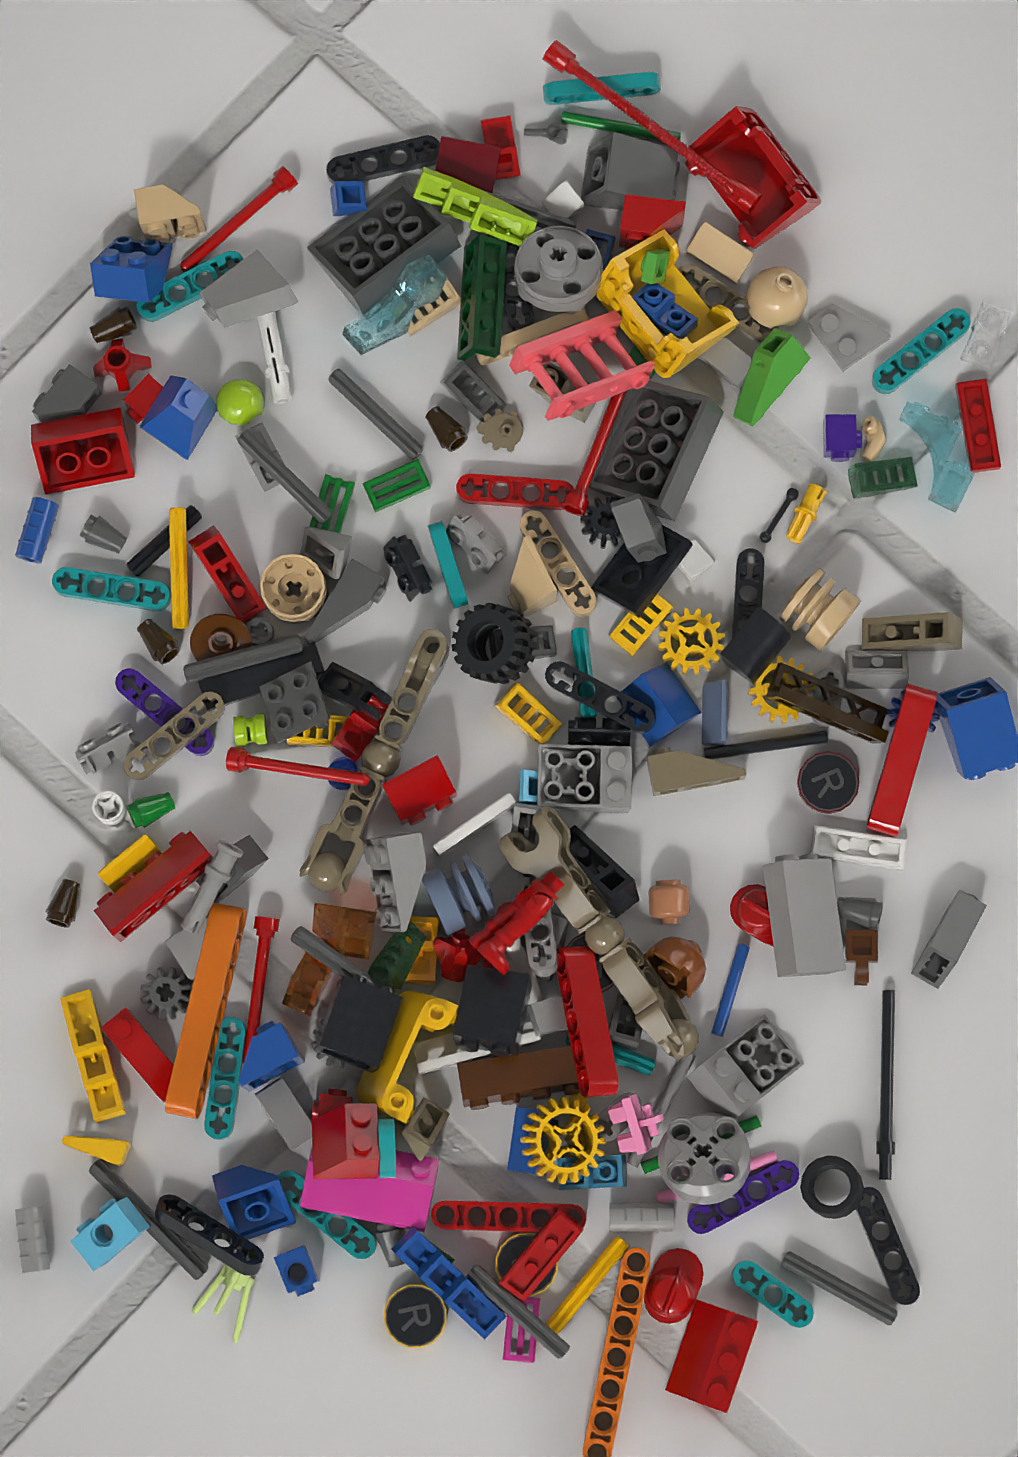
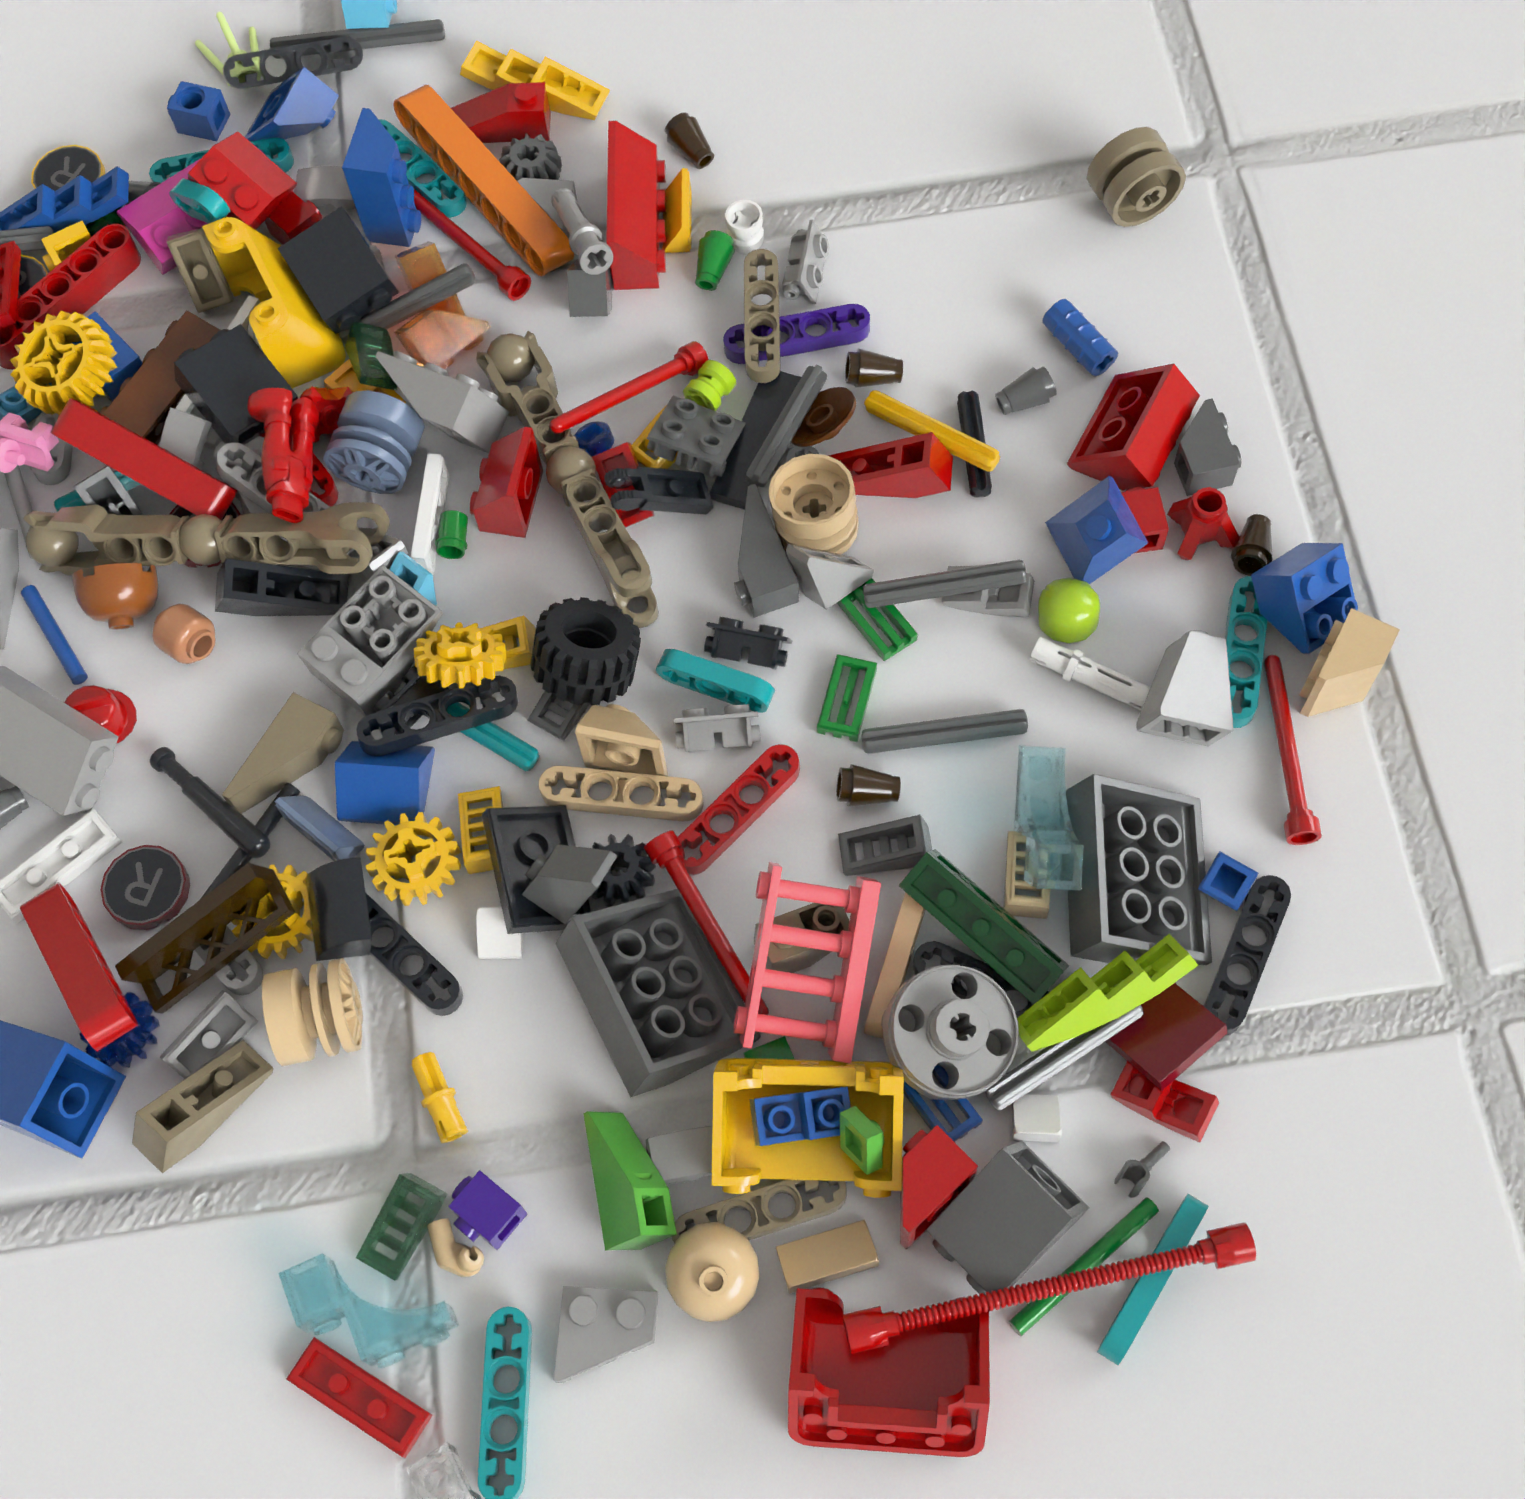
camera: 130 degrees right, 15 degrees down
(106, 1149) = (444, 40): yellow slope -> none
(112, 585) = (966, 370): teal beam -> none
(466, 1252) = (64, 243): none -> yellow bracket
(475, 802) = (452, 535): none -> green piece
(501, 429) = (818, 844): dark tan piece -> none
(553, 723) = (460, 655): none -> yellow gear
(753, 787) = (225, 816): none -> black piece
(792, 495) = (475, 1105): black hinge -> none

